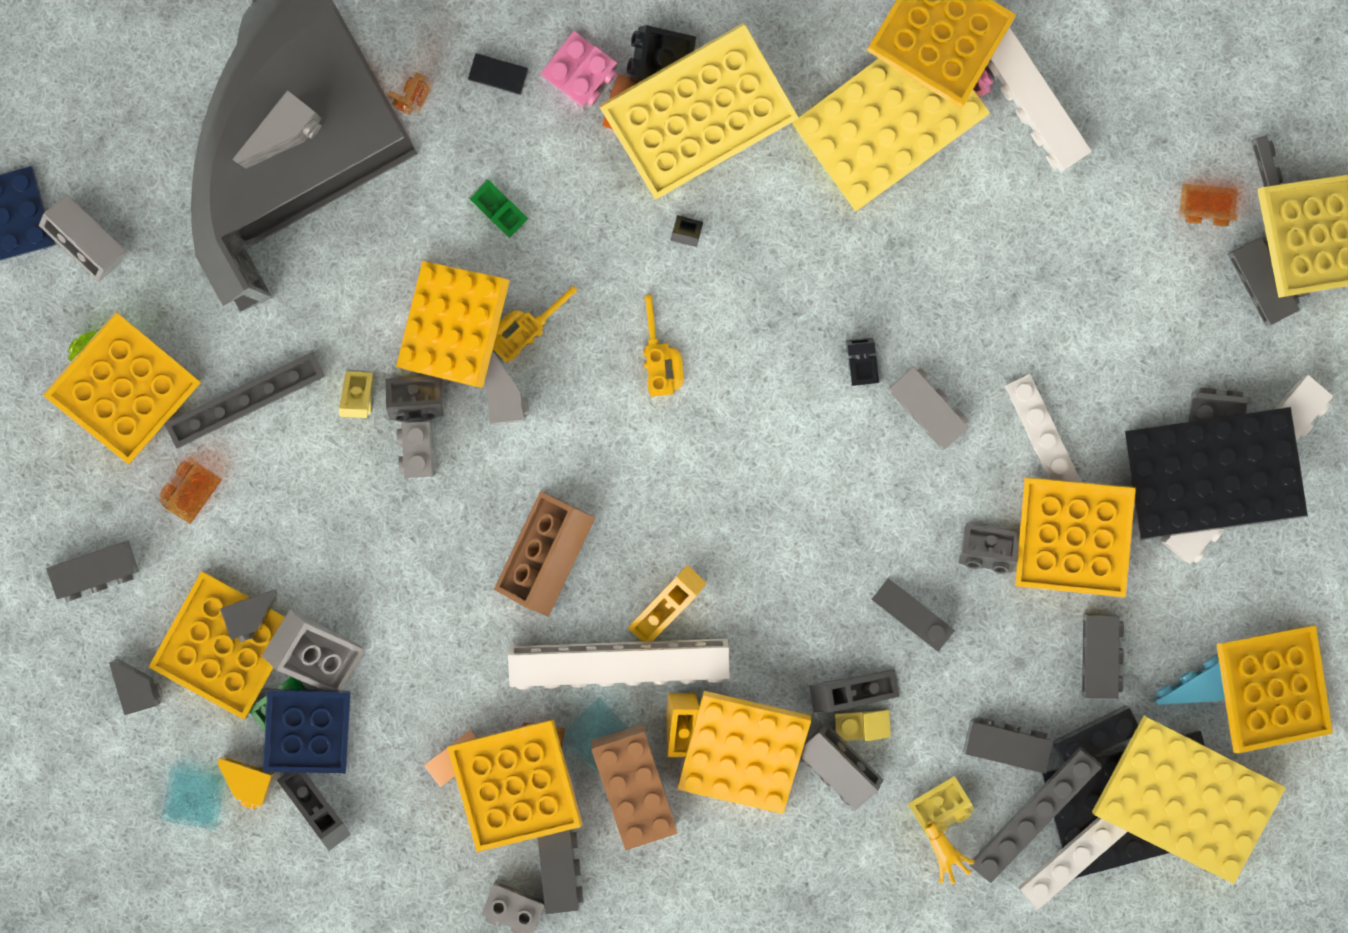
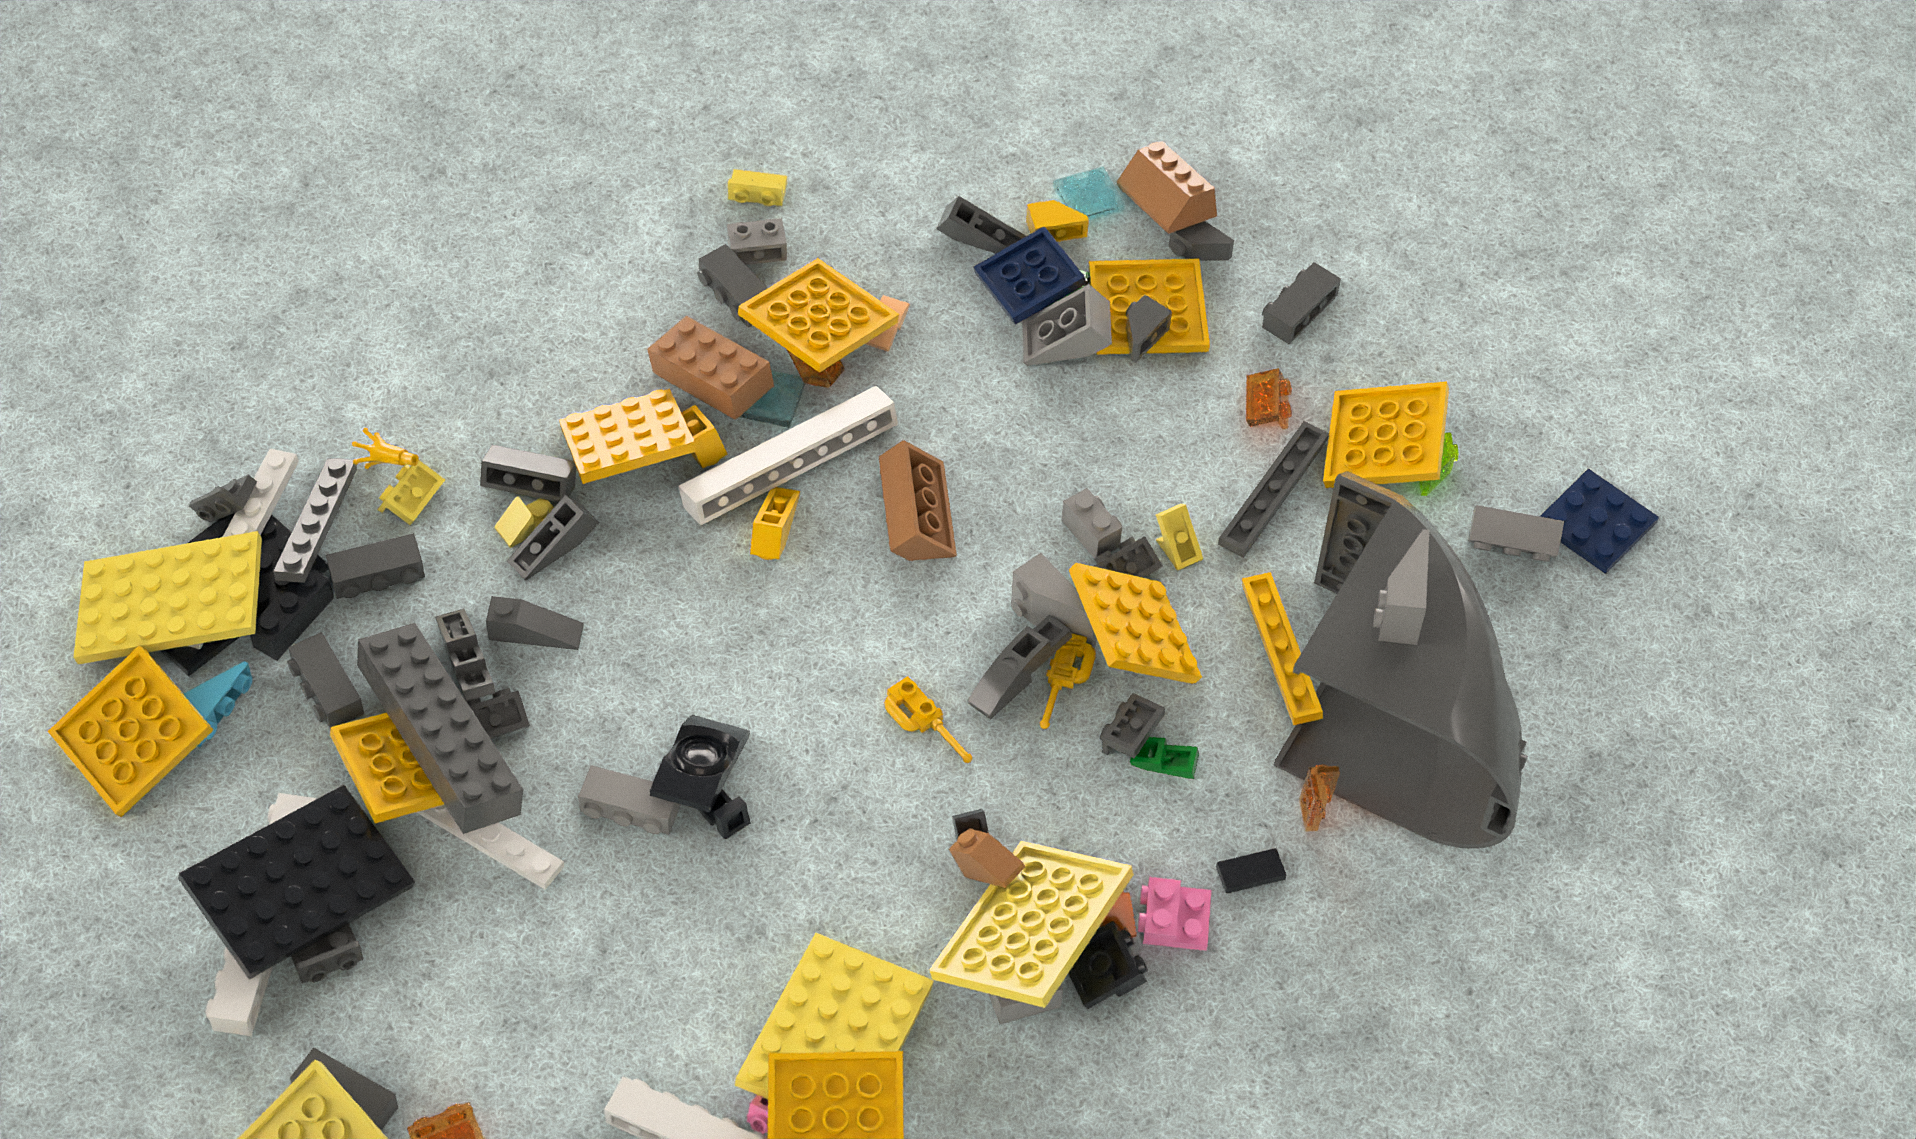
camera: 150 degrees right, 35 degrees down
(130, 751) = (1168, 188): none -> medium nougat slope
(344, 245) = (1281, 648): none -> yellow plate
(509, 242) = (1132, 726): none -> dark grey bracket
(561, 348) = (1016, 663): none -> dark grey slope
(696, 189) = (985, 859): none -> medium nougat slope
(858, 406) = (699, 763): none -> black slope
(982, 617) = (465, 654): none -> dark grey slope
(1044, 546) = (439, 728): none -> dark grey brick
(1096, 878) = (224, 500): none -> dark grey bracket

